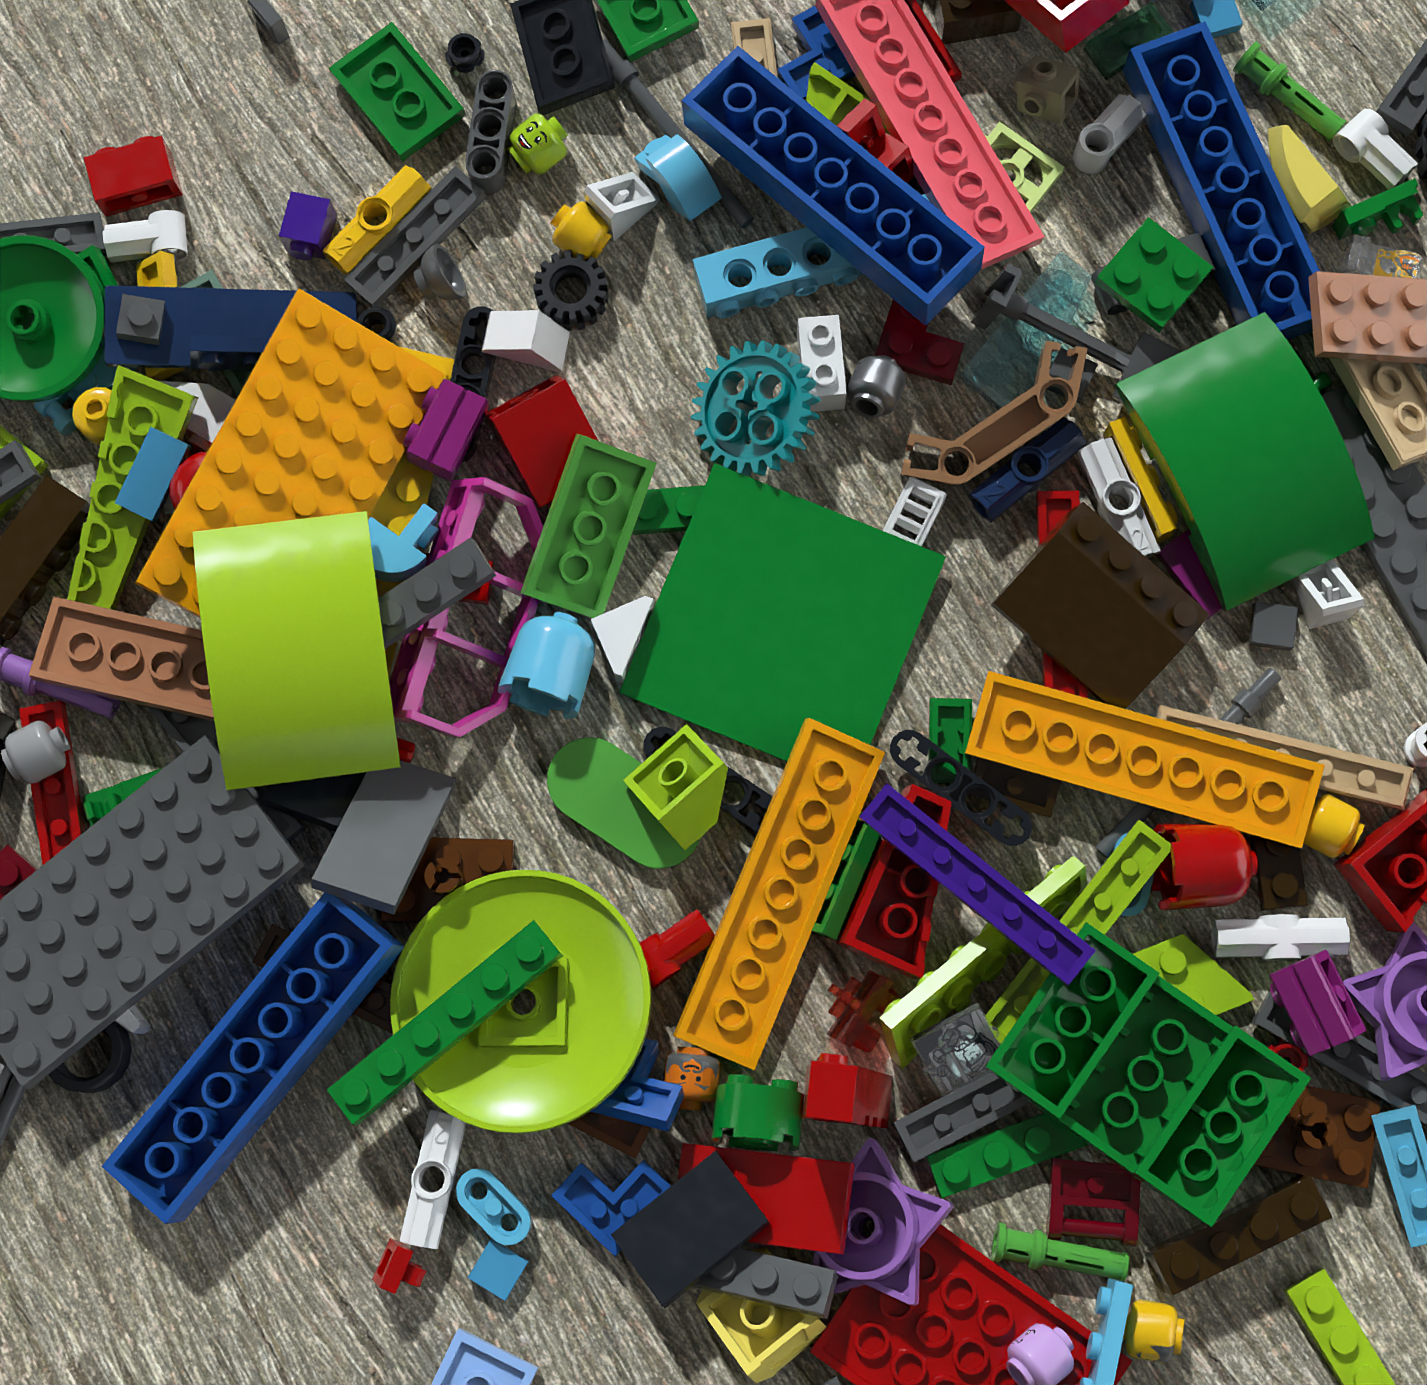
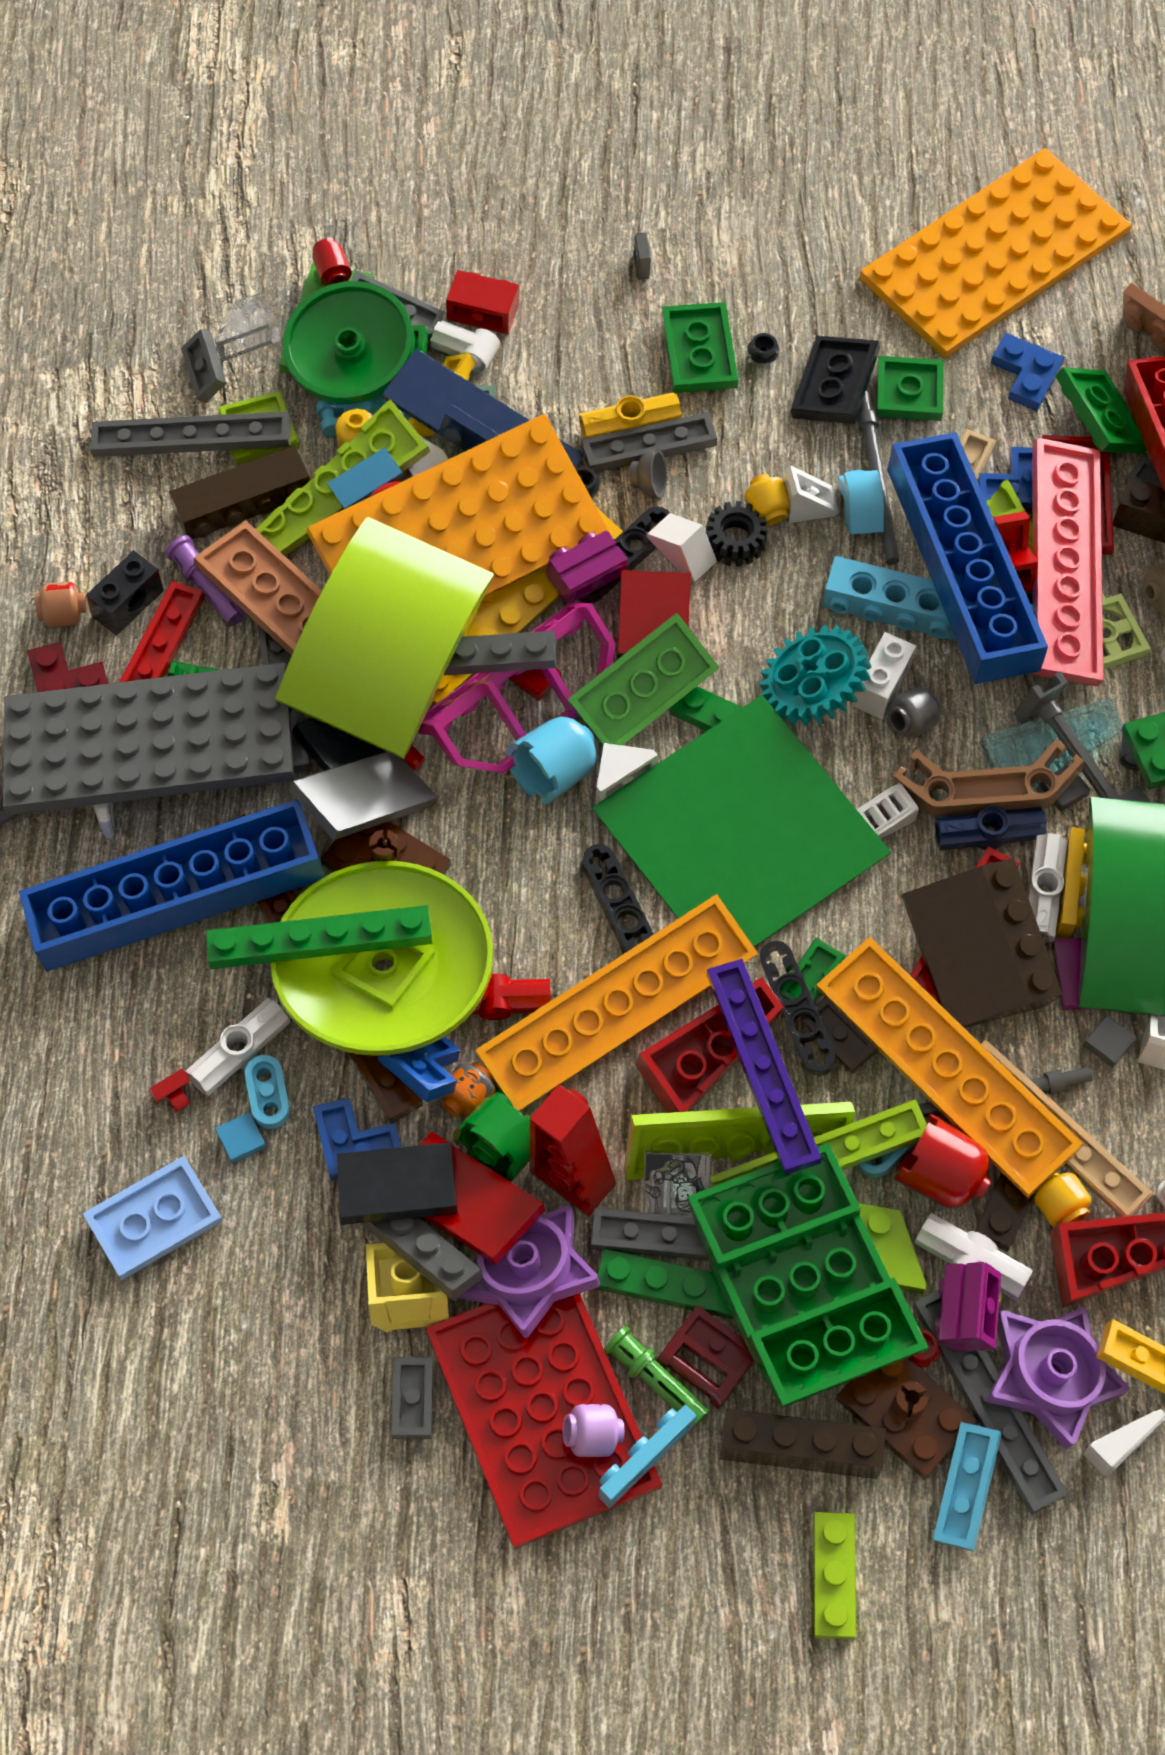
camera: 25 degrees right, 15 degrees down
(35, 752) = (163, 609): light grey head -> none
(109, 1076) = (62, 846): black tyre -> none
(140, 319) = (425, 381): dark grey plate -> none
(307, 226) = (579, 394): dark purple brick -> none
(398, 556) = (495, 619): medium azure brick -> none
(488, 115) = (748, 405): dark grey beam -> none
(538, 143) = (775, 430): lime head -> none
(590, 789) = (546, 883): bright green tile -> none
(681, 786) = (593, 888): lime slope -> none
(846, 881) = (671, 1022): green plate -> none
(855, 1007) = (609, 1126): clear red hips -> none
(916, 350) = (961, 708): dark red plate -> none
(1153, 1331) = (691, 1474): yellow head -> none

